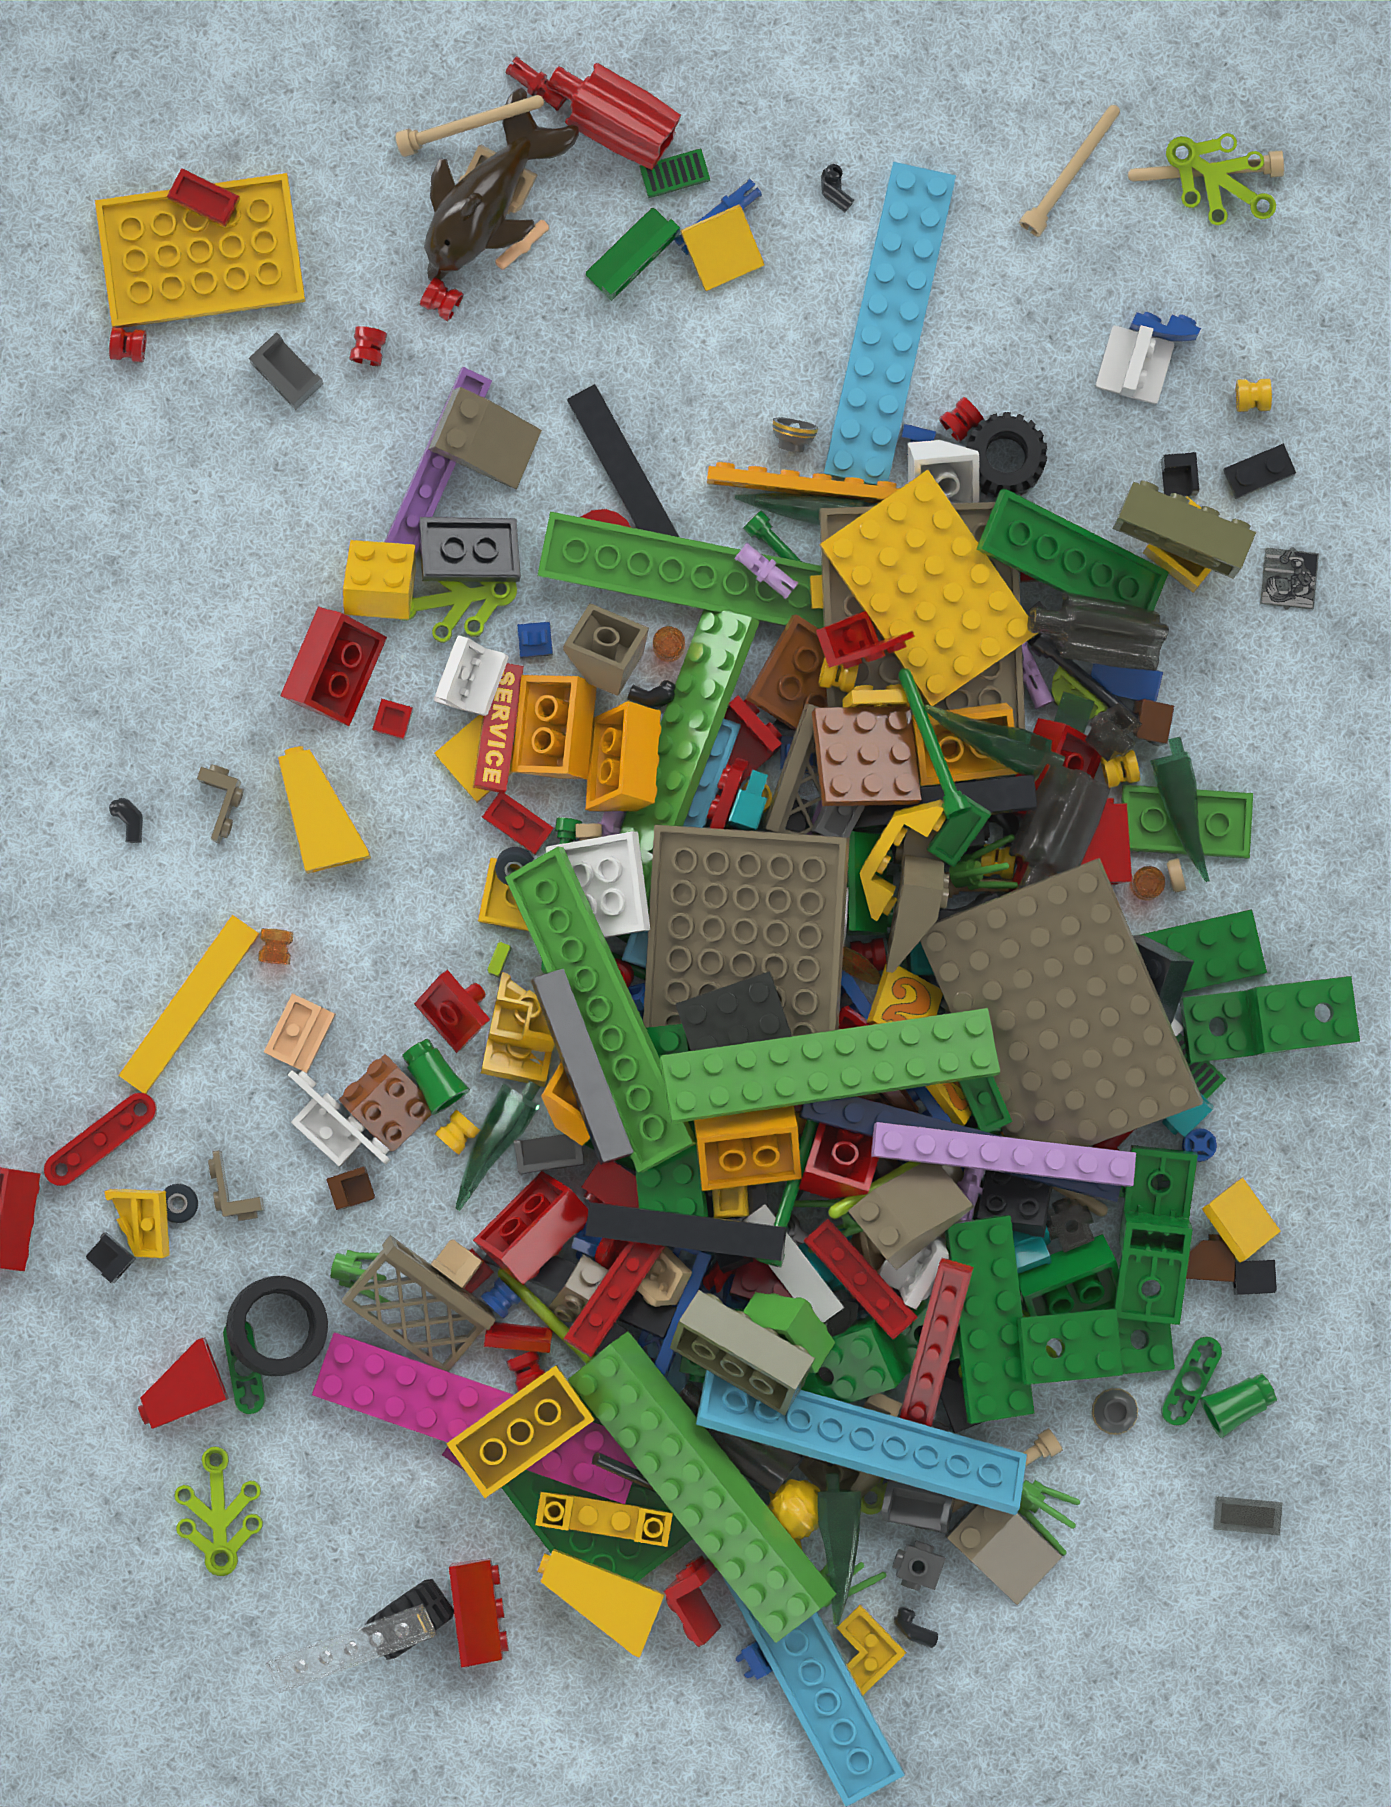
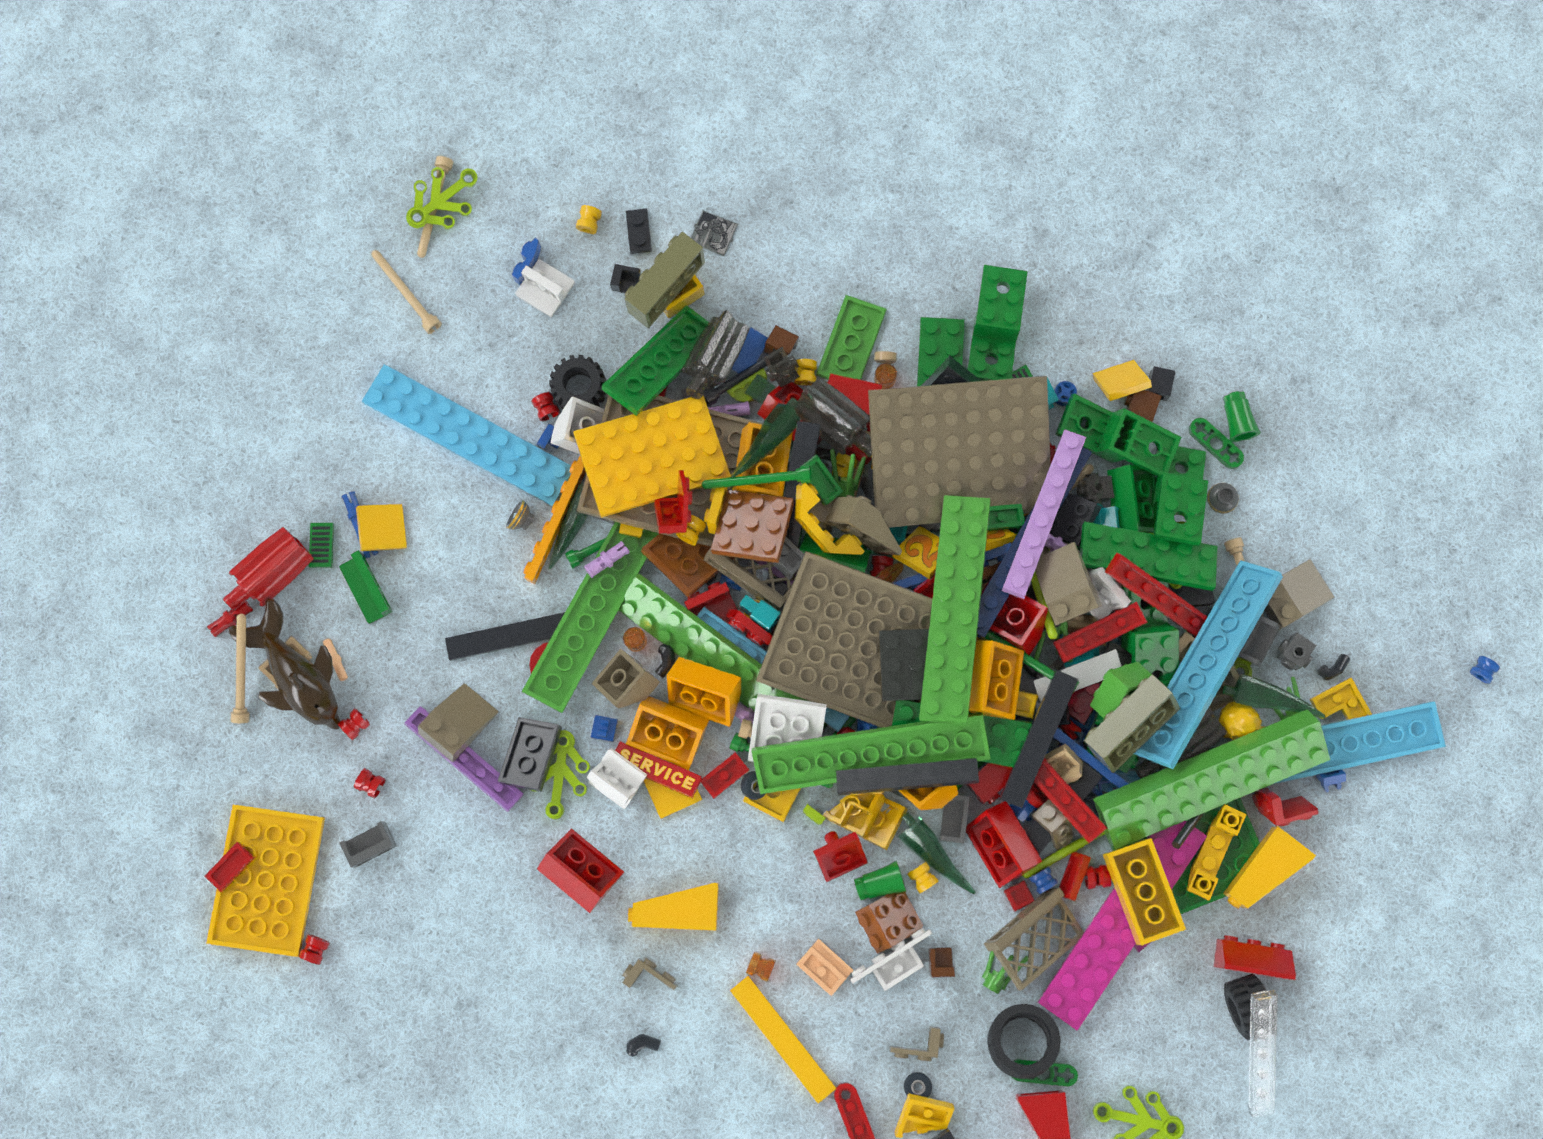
camera: 70 degrees left, 5 degrees down
(379, 579) = (531, 821): yellow brick -> none
(392, 719) = (628, 840): red plate -> none
(457, 1263) = (1013, 903): tan panel -> none
(832, 187) = (364, 445): black arm -> none
(1033, 1500) = (1272, 563): bright green plant -> none
(1179, 795) = (831, 339): clear green piece -> none
(1247, 1515) = (1312, 433): clear smoke tile -> none

